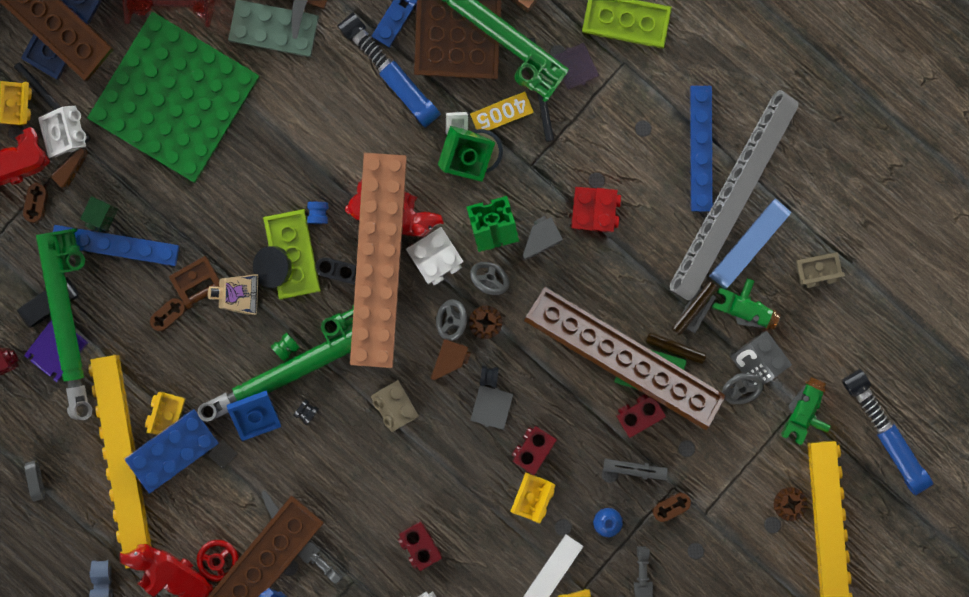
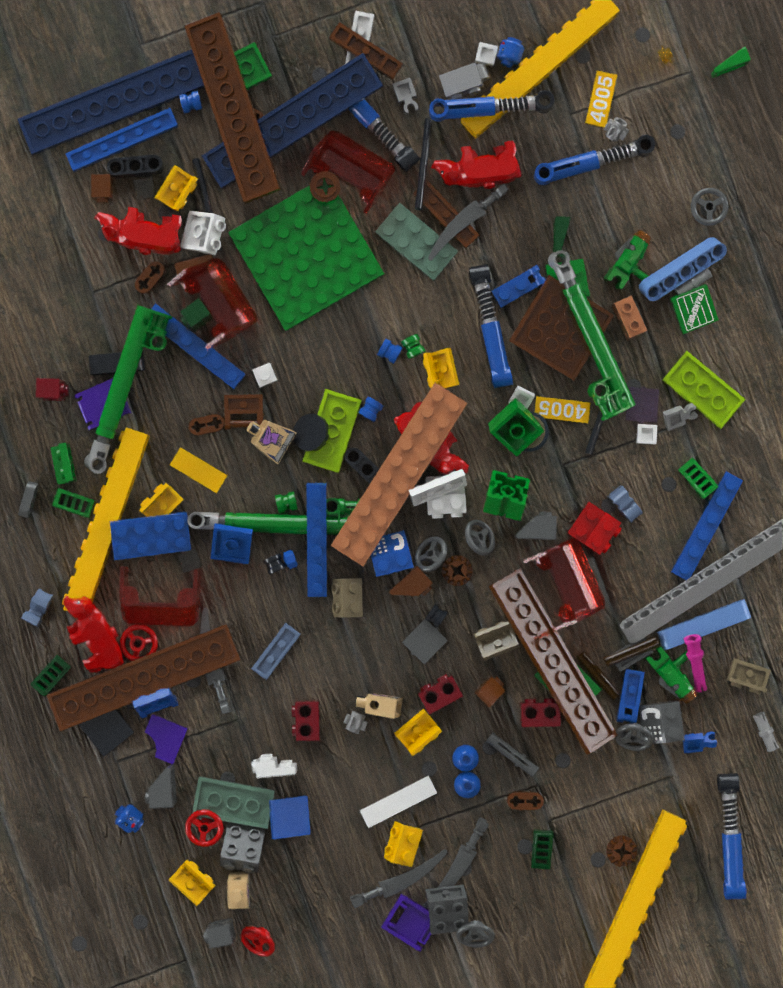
camera: 30 degrees right, 0 degrees up
(49, 427) = (63, 463): none -> green bracket
(62, 465) = (58, 494): none -> green slope
(114, 183) = (220, 296): none -> clear red windscreen
(157, 13) = (317, 182): none -> reddish brown gear
(183, 362) = (198, 470): none -> yellow sticker
(197, 236) = (264, 375): none -> white plate
(243, 508) = (182, 613): none -> clear red windscreen
(305, 147) = (389, 351): none -> blue wheel
(319, 399) = (290, 559): none -> blue tile
(325, 130) = (411, 342): none -> green wheel
(333, 366) = (316, 540): none -> blue plate
(354, 495) = (276, 651): none -> sand blue tile
(363, 136) = (441, 368): none -> yellow bracket
(414, 341) = (392, 554): none -> blue slope
(422, 252) = (438, 487): none -> white plate
(467, 521) = (355, 722): none -> light grey gear
(489, 488) = (388, 705): none -> tan torso
(559, 368) = (496, 640): none -> dark tan bracket
(580, 419) = (490, 690): none -> reddish brown slope
(592, 497) = (465, 758): none -> blue brick
(595, 91) = (646, 434): none -> white plate
(600, 269) = (573, 579): none -> clear red windscreen
(611, 169) = (625, 504): none -> sand blue leg
(615, 59) = (676, 416): none -> light grey plate
(680, 120) = (703, 494): none -> green slope
(705, 529) = (542, 833): none -> dark green slope
(717, 350) = (630, 695): none -> blue plate
(757, 277) = (695, 656): none -> dark pink pin
(803, 411) = (673, 781): green piece -> none
(805, 359) = (697, 742): none -> blue plate
(865, 314) = (765, 731): none -> light grey pin

